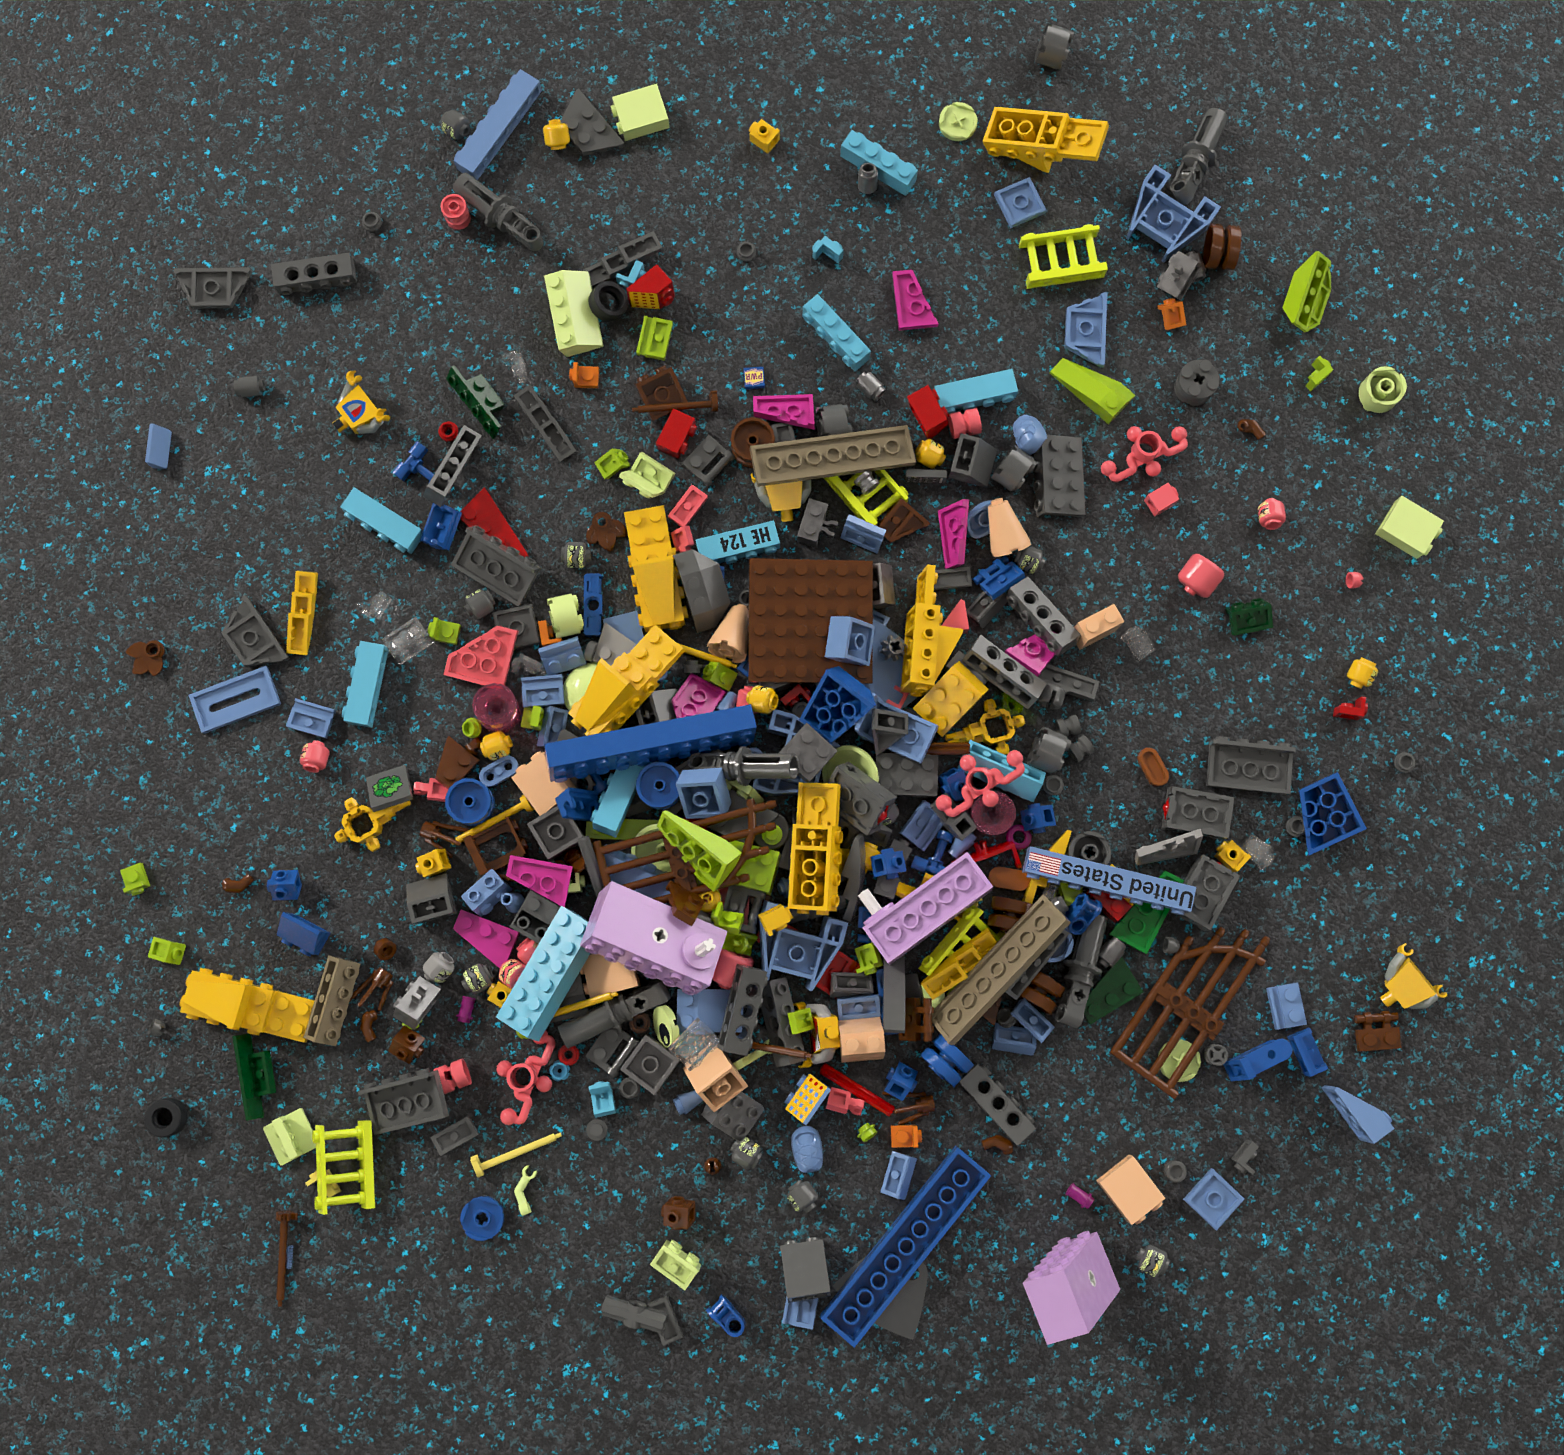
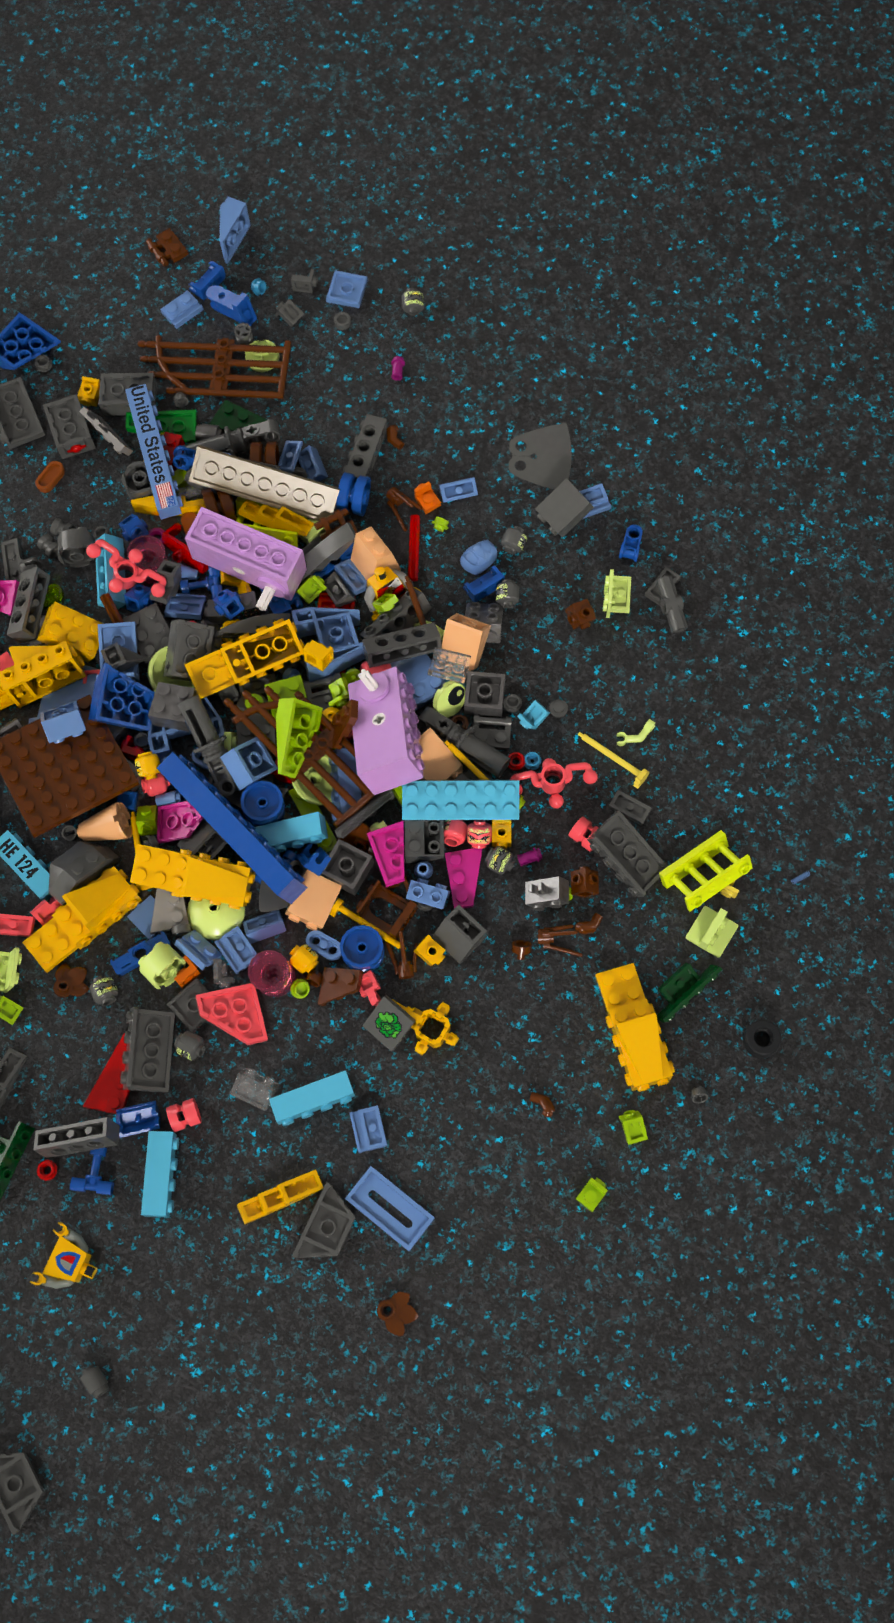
camera: 115 degrees left, 10 degrees down
(158, 447) = (197, 1432): medium blue slope -> none
(283, 1217) = (773, 898): reddish brown piece -> none
(284, 885) = (519, 1059): blue brick -> none
(302, 933) = (550, 1019): blue slope -> none
(314, 756) = (399, 1104): coral head -> none
(332, 1001) = (587, 961): dark tan brick -> none
(378, 605) = (237, 1132): clear bracket -> none
(420, 567) = (190, 1112): none -> coral wheel
(438, 967) = (510, 896): light grey head -> none
(444, 631) = (230, 1062): lime bracket -> none
(471, 1224) = (671, 761): blue plate -> none
(533, 718) = (263, 941): lime bracket -> none
(687, 1101) = (496, 656): medium blue cone -> none
(717, 1165) = (534, 617): reddish brown hinge -> none
(774, 1136) = (484, 585): none -> blue hinge
(806, 1098) = (440, 571): slope -> none
(841, 1101) = (429, 551): coral plate -> none
(887, 648) = (52, 696): flat silver gear -> none
(901, 1081) = (388, 518): blue brick -> none
(904, 1246) = (502, 454): blue brick -> none
(978, 732) = (88, 604): yellow piece -> none
(1071, 1287) = (459, 324): lavender piece -> none
(1131, 1190) = (372, 339): light nougat brick -> none
(1215, 1118) = (289, 312): none -> dark grey bracket
(1259, 851) = (74, 377): clear bracket -> none
(1269, 1103) = (258, 286): none -> dark azure plate
(1408, 984) = (120, 243): yellow torso -> none

